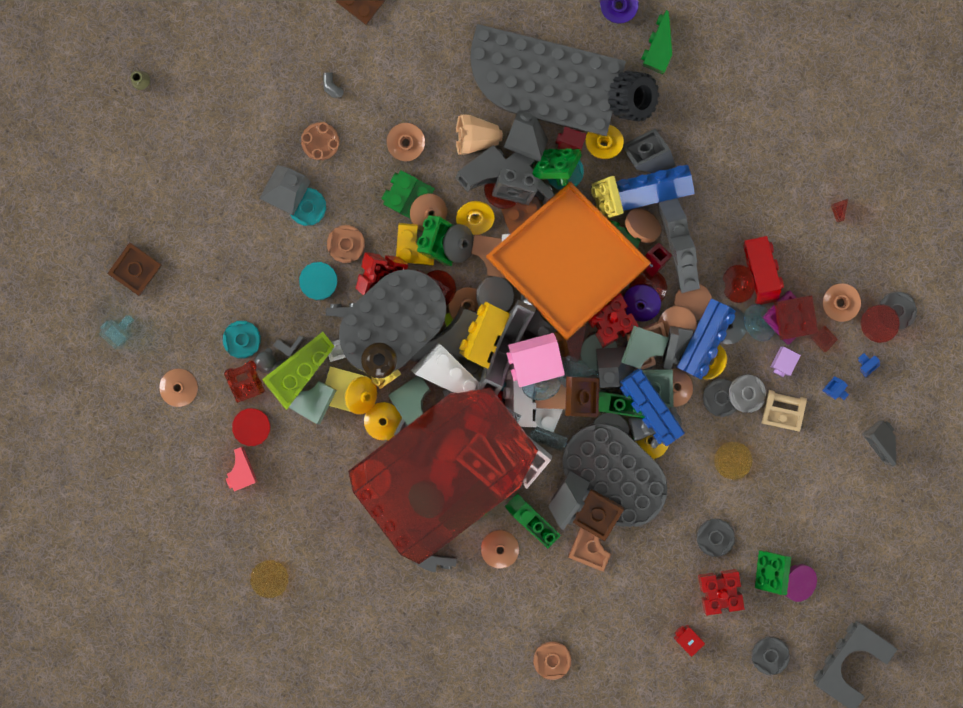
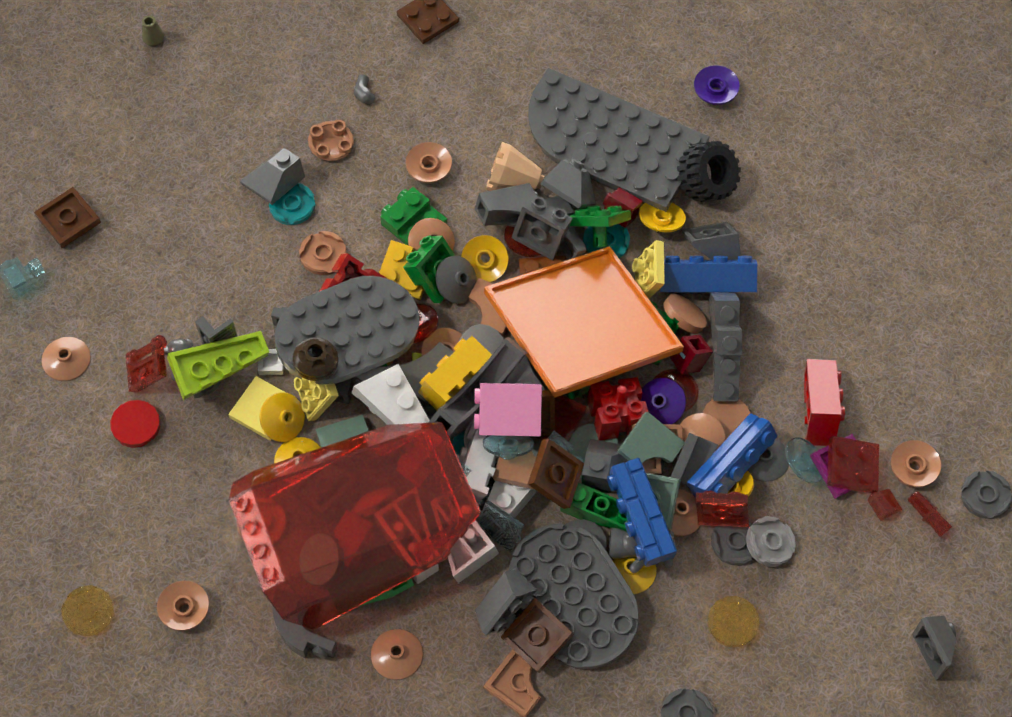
camera: 10 degrees right, 25 degrees down
(242, 473) = (101, 472): coral arch -> none
(247, 339) = (169, 323): teal tile -> none
(314, 402) = (221, 410): sand green tile -> none
(318, 281) = (276, 283): teal tile -> none
(330, 566) = (181, 594): none -> nougat dish
(532, 520) = (450, 626): green slope -> none
(660, 51) = (751, 141): green slope -> none
(700, 385) = (722, 509): none -> clear red plate
(733, 289) = (789, 408): clear red dish -> none
(783, 417) = (811, 583): tan plate -> none
(785, 362) = (828, 514): lavender brick -> none
(836, 389) = (888, 566): blue tile -> none
(839, 210) = (932, 356): clear red slope -> none
(858, 339) = (929, 513): none -> clear red axle
(868, 365) = (937, 547): blue tile -> none
(880, 323) = (961, 500): clear red tile -> none

